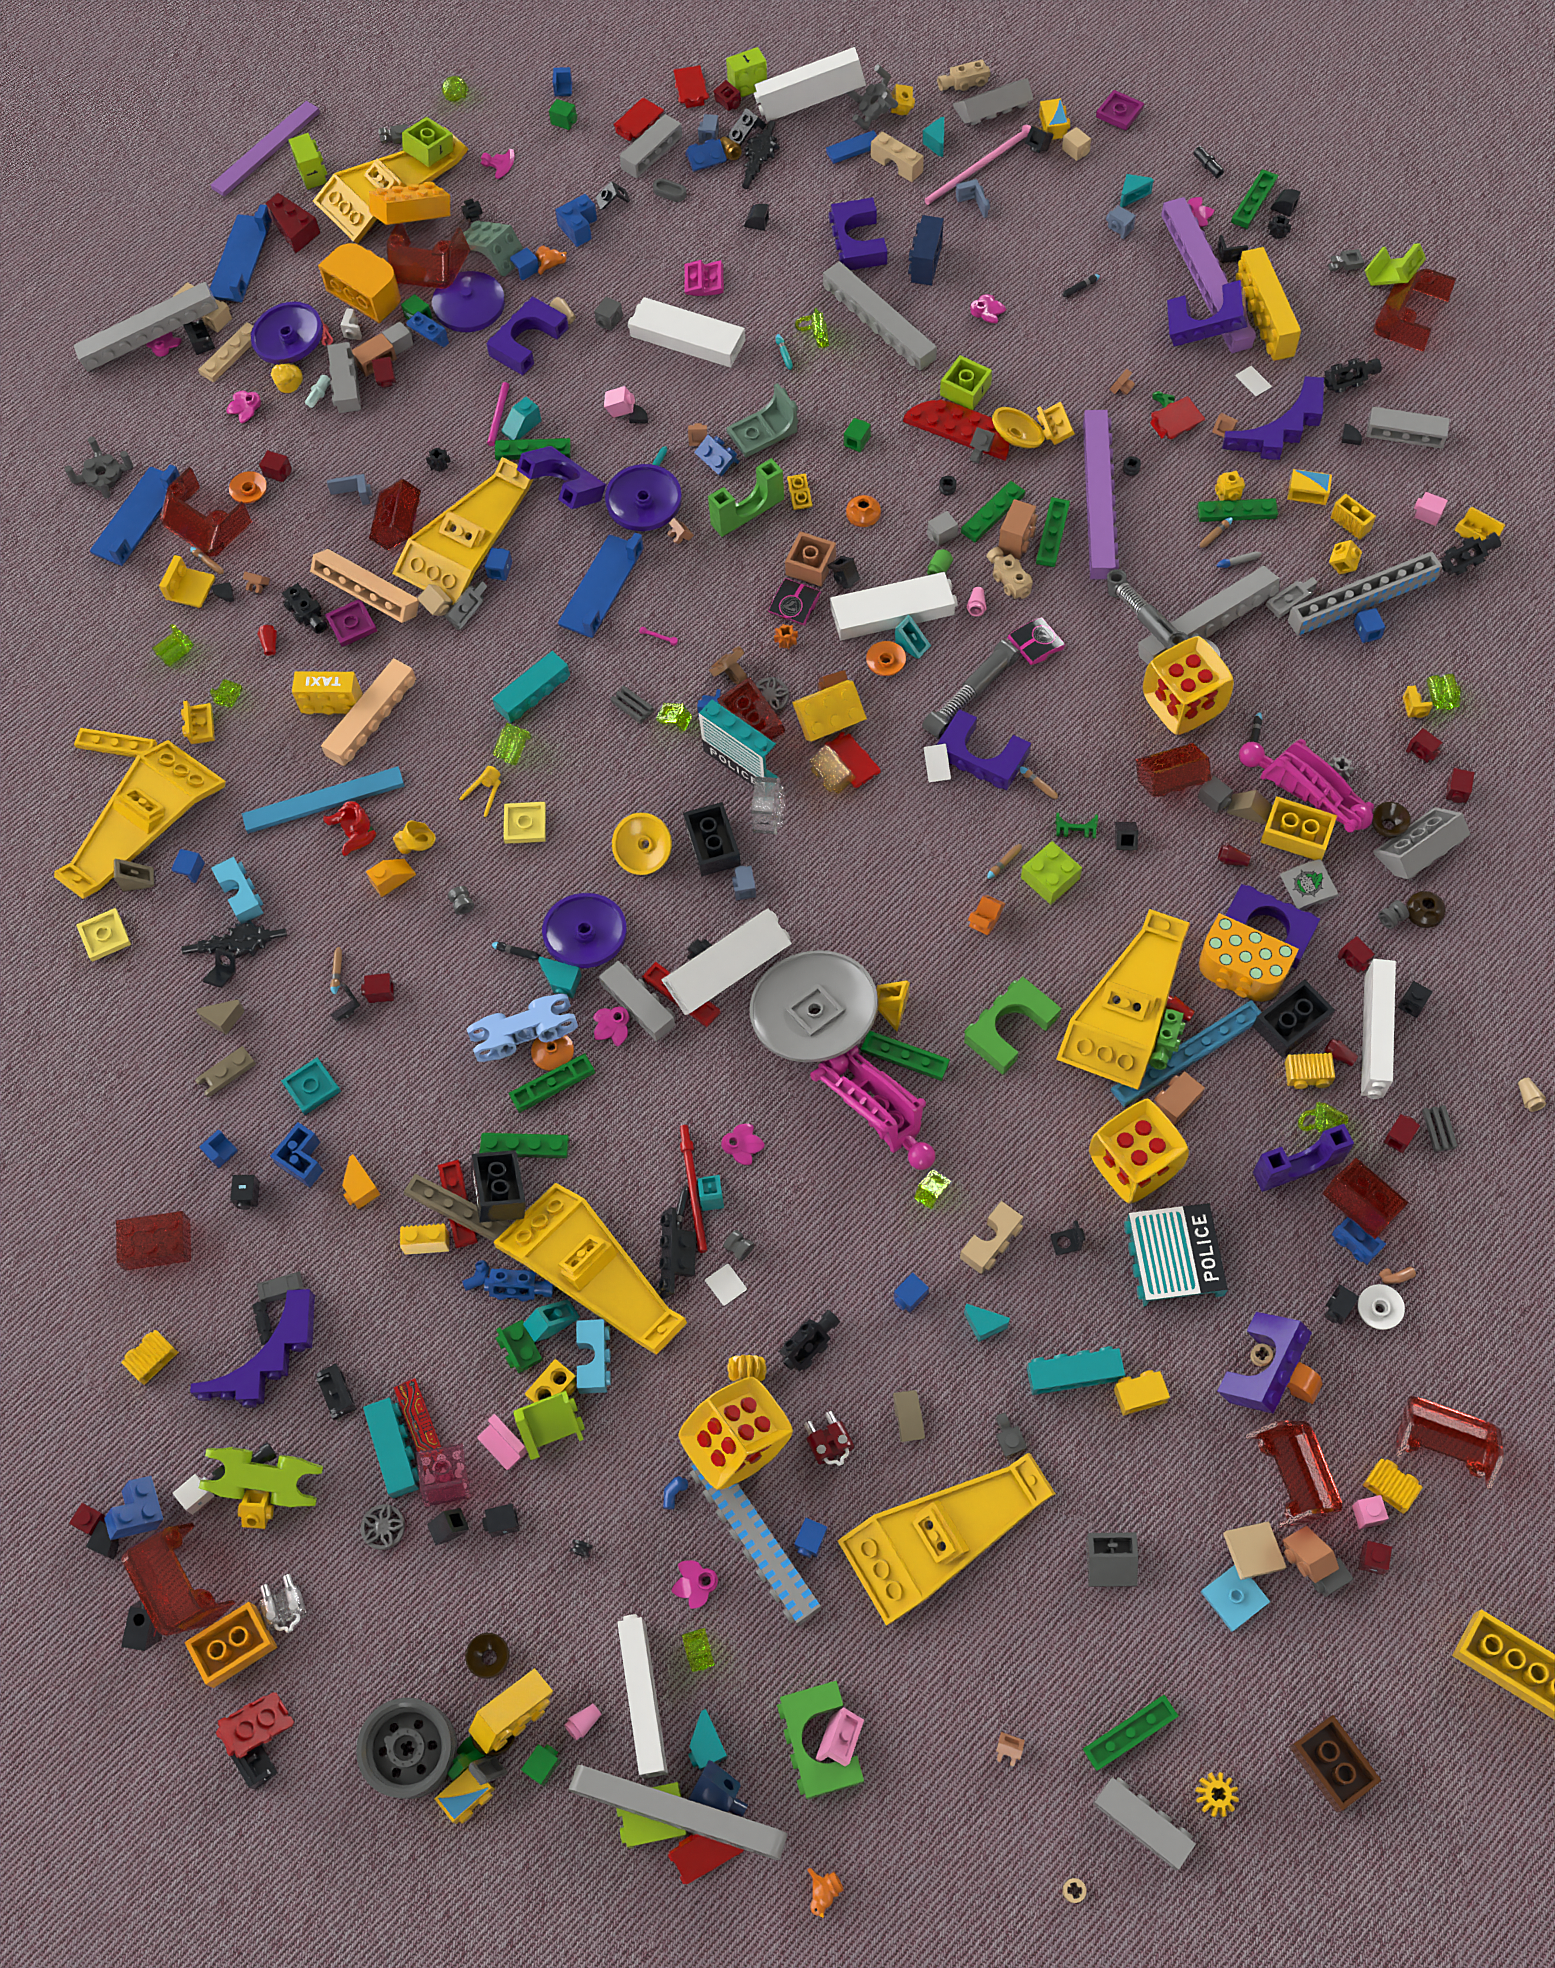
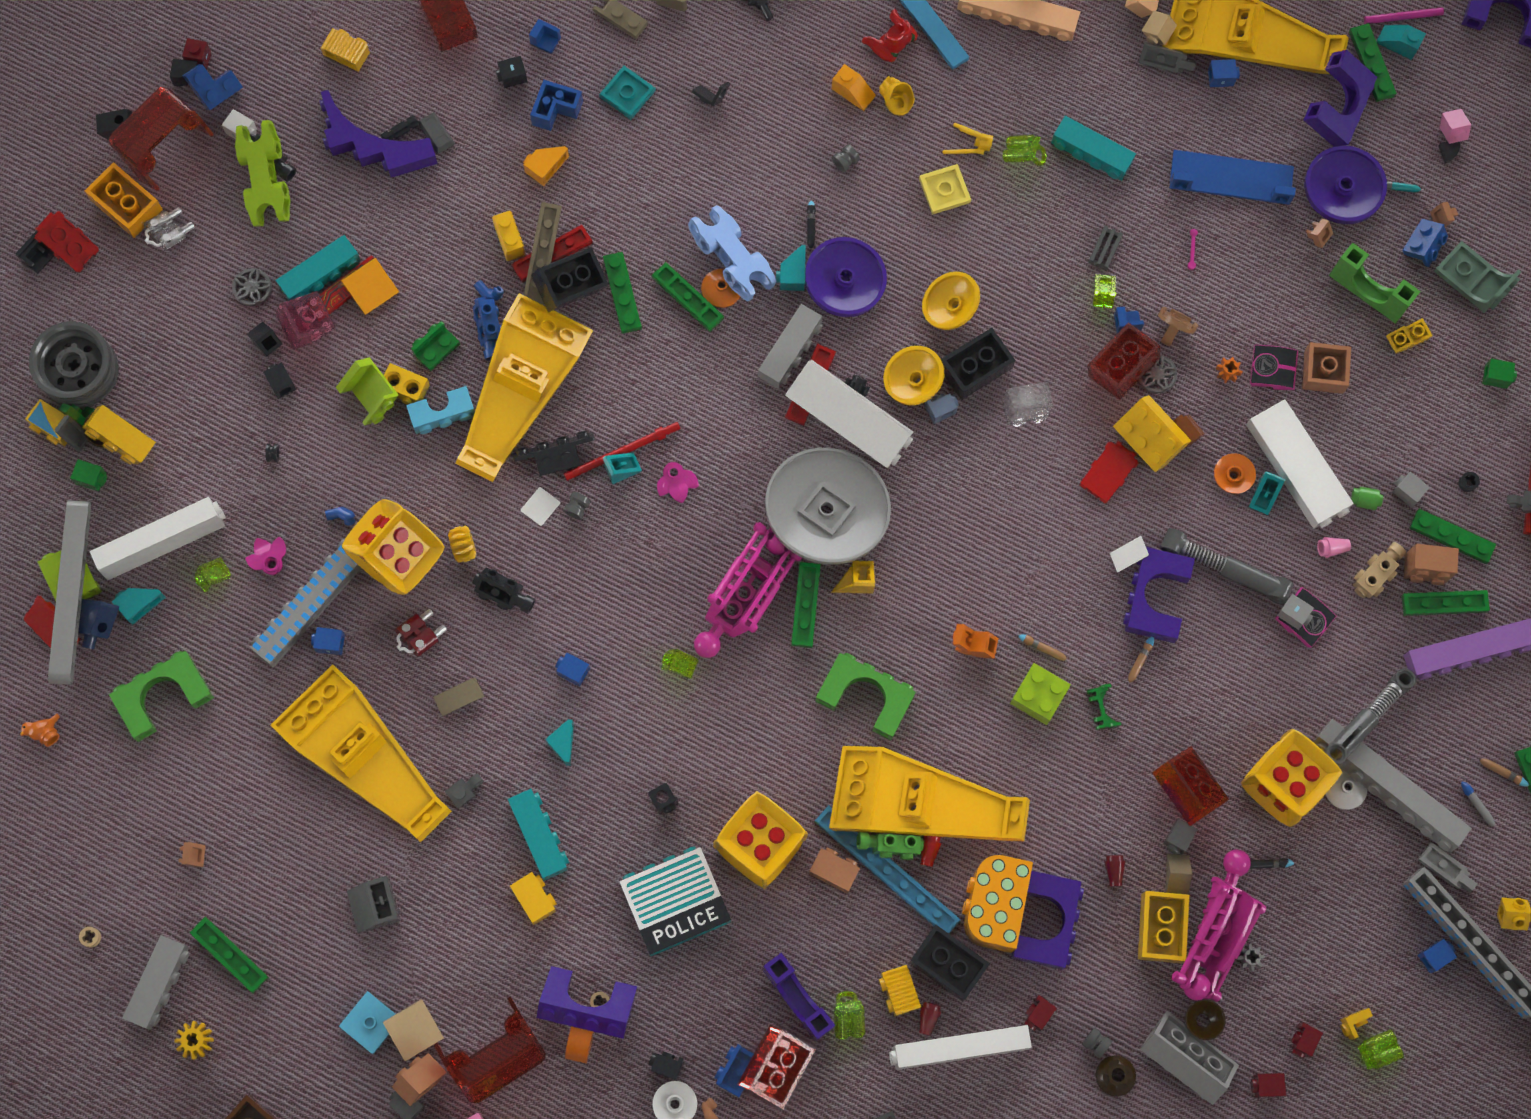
camera: 65 degrees right, 10 degrees up
(255, 1509) = (236, 179): yellow brick -> none
(335, 1391) = (356, 210): black hinge -> none
(336, 971) = (731, 78): medium nougat piece -> none
(378, 988) = (736, 116): dark red brick -> none
(429, 1396) = (370, 286): none -> light orange tile
(476, 1650) = (160, 396): dark brown piece -> none
(502, 1443) = (346, 357): bright pink panel -> none
(550, 1319) = (464, 365): teal slope -> none
(581, 1722) = (130, 497): bright pink cone -> none
(610, 1027) = (758, 330): dark pink plate -> none
(682, 1207) = (601, 446): black piece -> none
(693, 890) = (906, 368): none -> yellow dish
(734, 743) = (1077, 356): teal panel -> none
(831, 769) = (1089, 455): clear yellow brick -> none
(840, 1737) = (164, 710): bright pink panel -> none
(844, 571) = (1322, 404): black brick -> none
(863, 516) = (1404, 413): orange piece -> none
(981, 1253) = (661, 738): tan arch -> none
(1033, 642) = (1296, 612): none -> light grey brick
(1126, 835) = (1106, 758): black brick -> none
(1309, 884) = (1106, 952): light grey slope -> none
(1401, 1133) = (859, 1093): dark red brick -> none
(1415, 999) = (1005, 1080): black brick -> none

